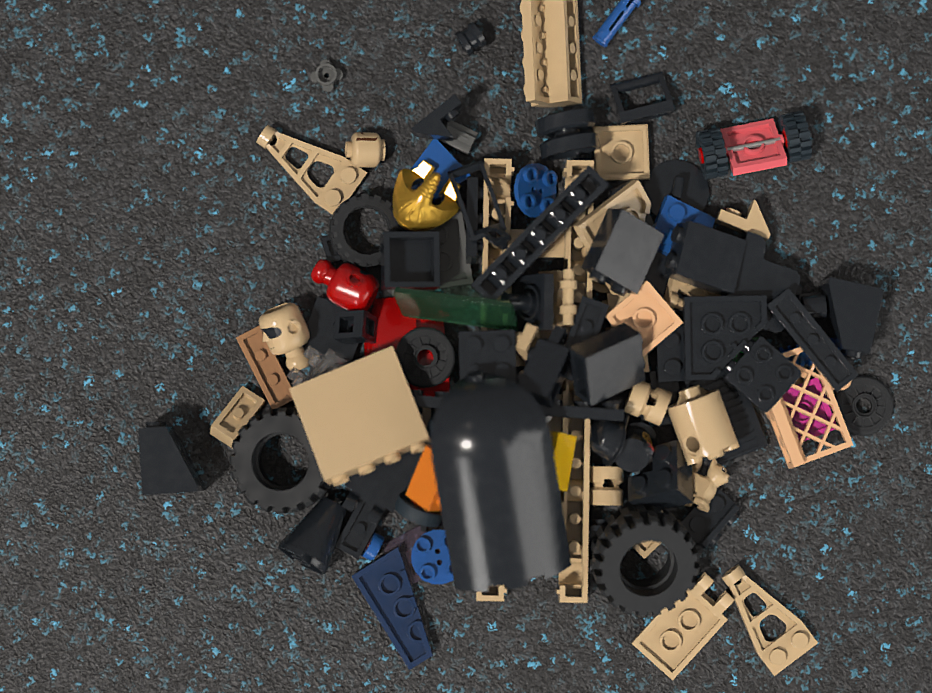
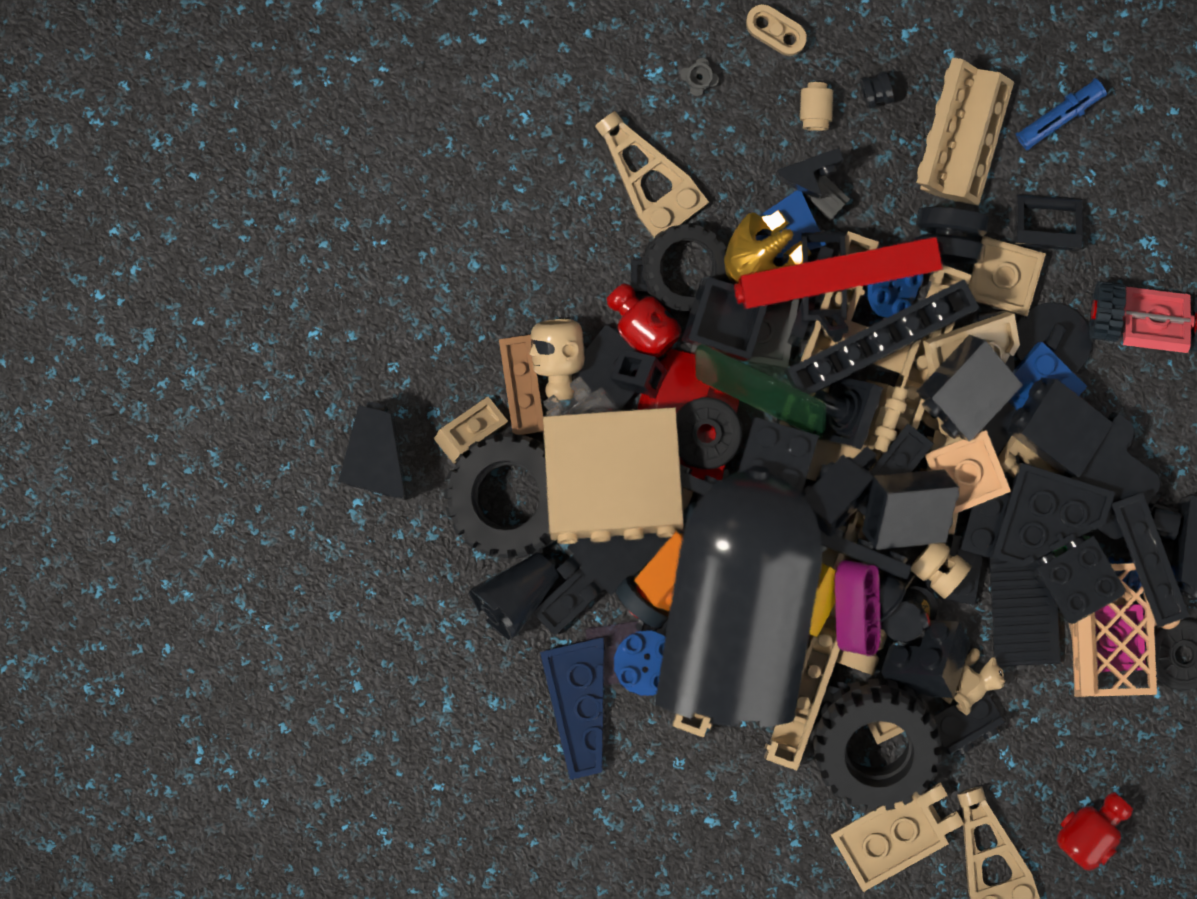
camera: 15 degrees right, 0 degrees up
(365, 149) = (716, 176): tan head -> none
(373, 546) = (575, 627): blue tile -> none
(375, 17) = (777, 29): none -> tan plate
(427, 68) = (816, 106): none -> tan brick
(487, 194) = (838, 273): none -> red brick
(526, 340) = (827, 452): tan plate -> none
(592, 457) = (857, 608): none -> magenta beam
(702, 424) = (993, 613): tan cylinder -> none
(752, 222) = (1127, 405): tan slope -> none
(838, 573) = (1092, 834): none -> red piece

